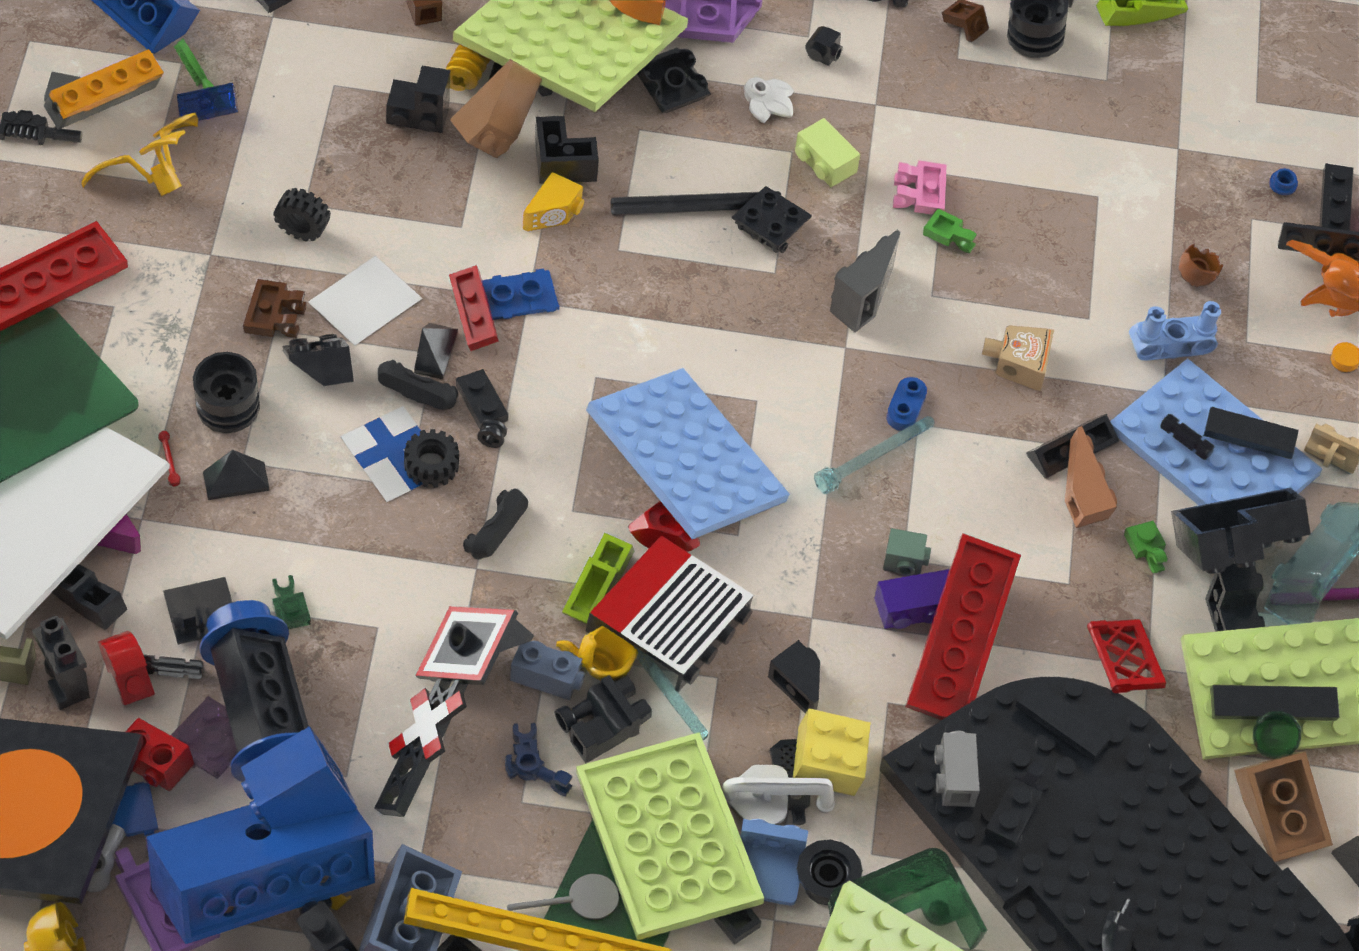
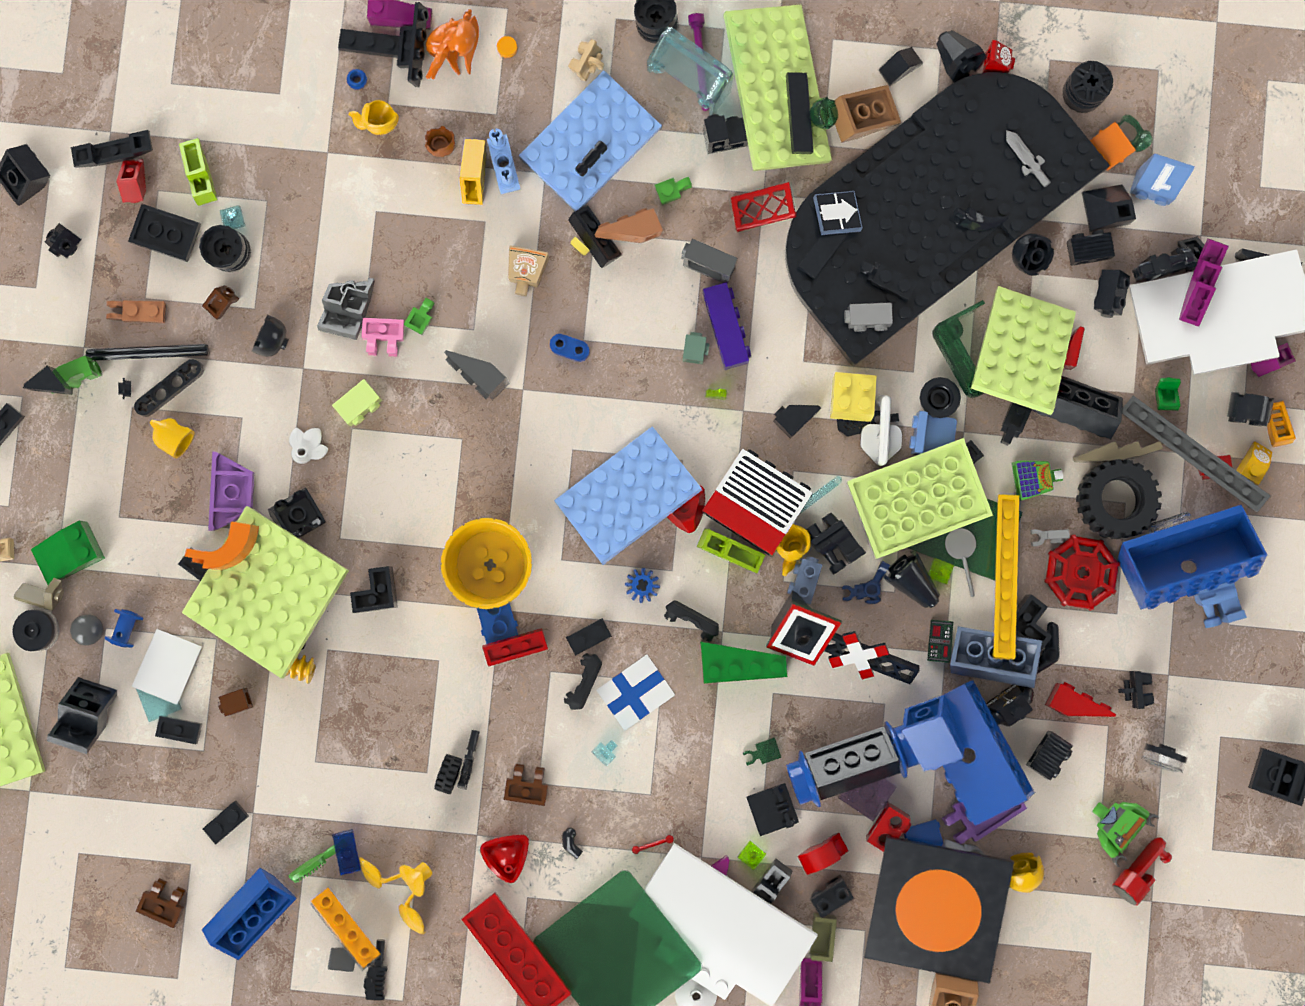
camera: 85 degrees left, 30 degrees up
(136, 579) = (751, 855): none -> clear neon green tile
(174, 666) = (816, 824): black axle -> none
(176, 278) = (506, 856): none -> red hat
(182, 355) = (568, 842): none -> black arm
(226, 392) = (619, 814): black wheel -> none
(235, 476) = (667, 797): black slope -> none
(305, 243) = (468, 761): none -> black piece
(312, 403) = (604, 753): none -> clear light blue tile
(323, 360) = (569, 750): black slope -> none
(365, 300) = (508, 723): white sticker -> none
(422, 103) = (336, 698): black brick -> none
(428, 566) = (737, 664): none -> green wedge
(431, 443) = (643, 680): black tyre -> none
(435, 350) = (548, 671): black slope -> none
(454, 855) = (940, 641): none -> slope
(492, 433) = (619, 627): black bush -> none
(498, 109) = (353, 641): medium nougat slope -> none
(538, 815) = (913, 580): none -> black cone
(550, 865) = (940, 571): none -> clear neon green tile
(553, 204) = (418, 595): yellow slope -> none
(553, 464) = (635, 583): none -> blue gear
(600, 248) = (471, 548): none -> yellow piece
(680, 203) = (407, 495): black axle -> none
(771, 218) = (421, 441): black hinge -> none
(824, 45) = (256, 406): black plate -> none
(830, 478) = (637, 399): clear light blue piece -> none
(837, 581) = (716, 394): none -> clear neon green tile
(918, 60) = (270, 337): none -> black cylinder
(963, 628) = (758, 311): red plate -> none
(965, 151) = (345, 308): none -> dark grey slope
(1038, 572) = (708, 261): none -> dark grey window
(1056, 421) = (579, 246): none -> light yellow tile
(1081, 40) = (232, 217): none -> clear light blue tile
(1119, 735) = (837, 212): none -> tile
(1159, 289) = (473, 171): none -> yellow slope
(1230, 196) = (376, 117): none -> yellow hair
(1239, 528) = (671, 134): black piece -> none
(1251, 432) = (583, 115): black tile -> none

